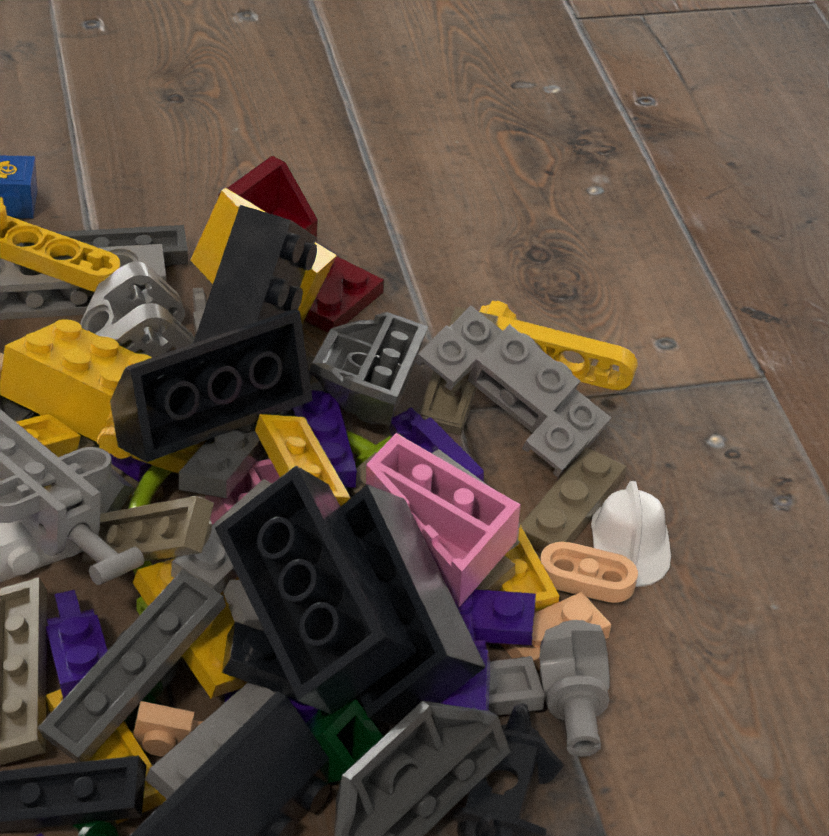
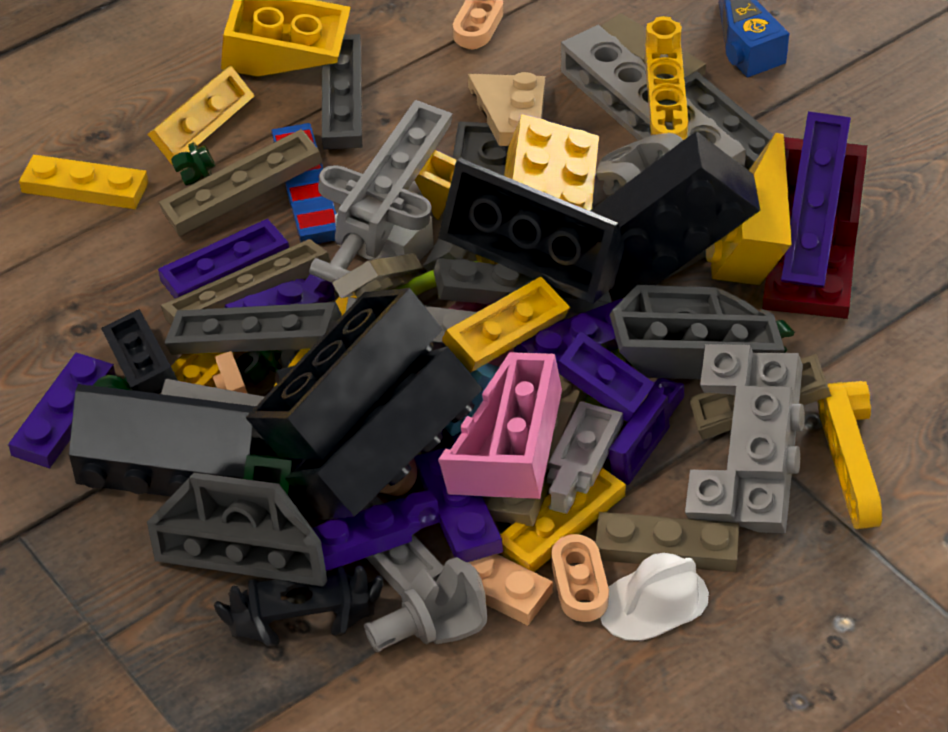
camera: 70 degrees right, 5 degrees up
(286, 197) = (816, 199): none -> dark purple plate
(372, 433) = (604, 376): none -> dark purple plate

